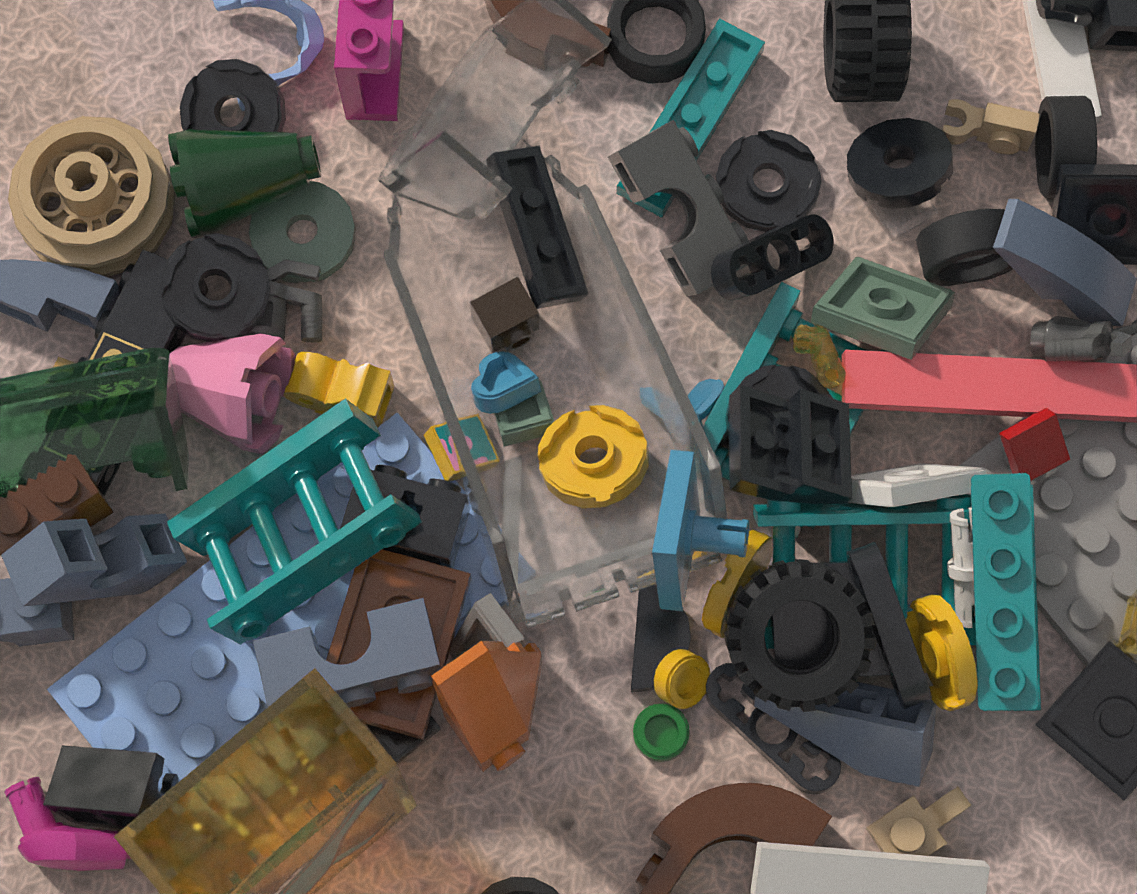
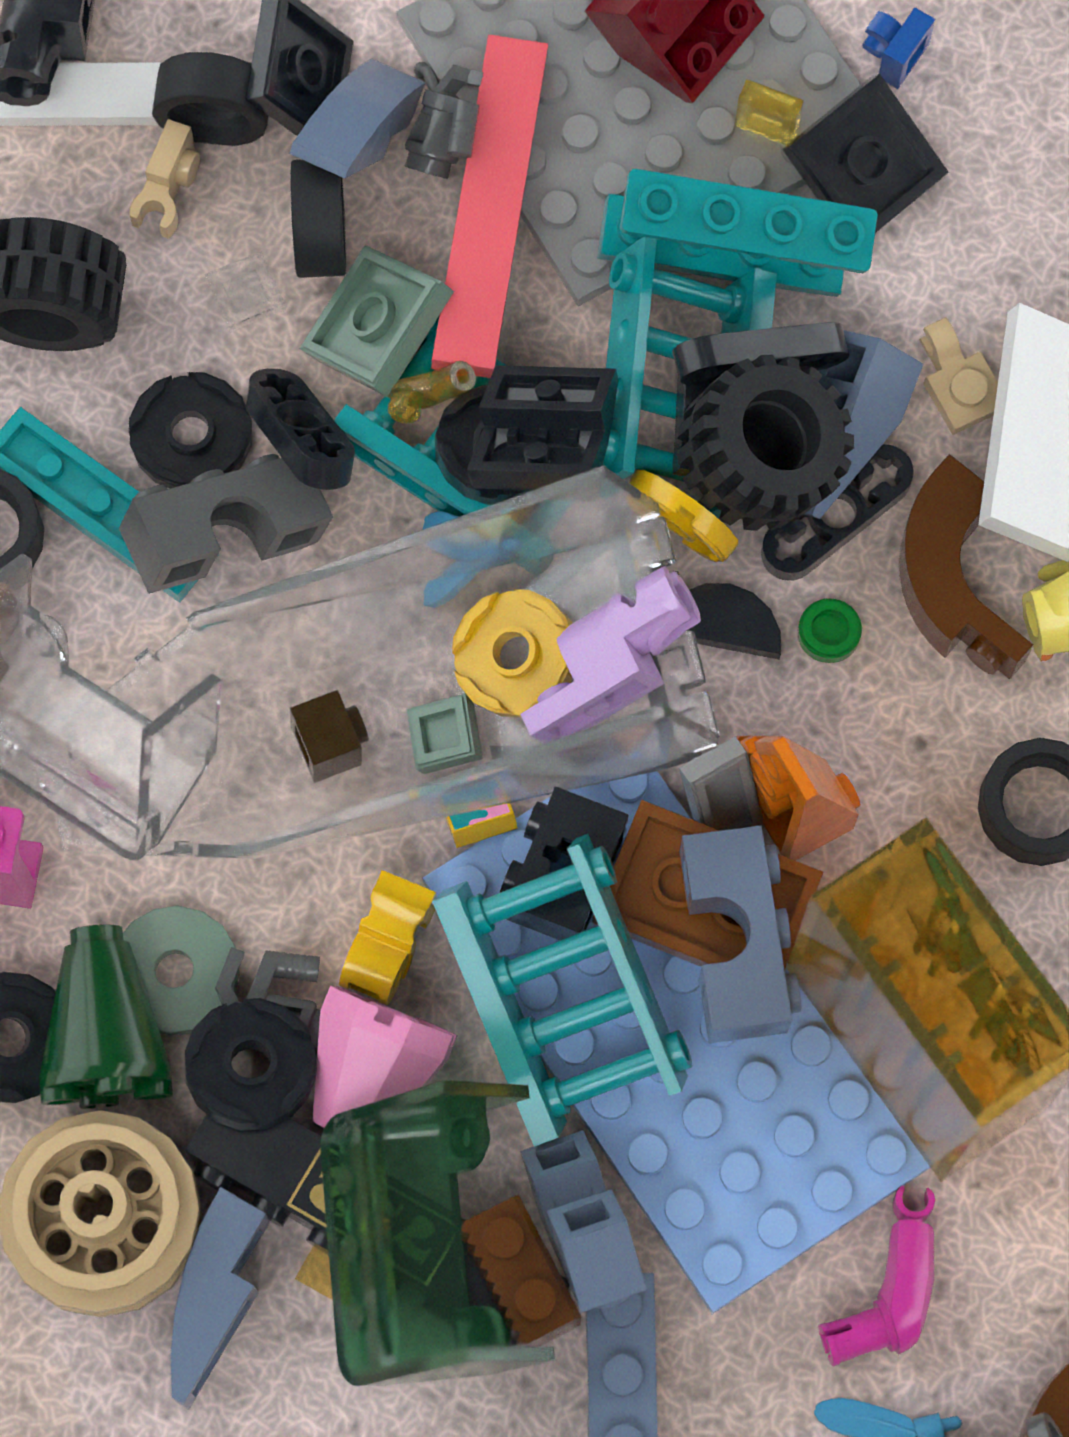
camera: 85 degrees left, 0 degrees up
(105, 785) = (845, 1232): black hinge -> none
(503, 383) = (408, 747): dark azure tile -> none
(538, 228) = (250, 680): black tile -> none
(585, 526) = (612, 656): none -> lavender plate
(681, 678) = (775, 596): yellow tile -> none
(683, 531) = (649, 535): dark azure tile -> none
(893, 141) = (167, 270): black tile -> none
(912, 484) = (597, 308): white tile -> none
(943, 652) = (798, 296): yellow tile -> none
(961, 566) = (705, 266): white pin -> none
(1035, 444) = (562, 186): red tile -> none

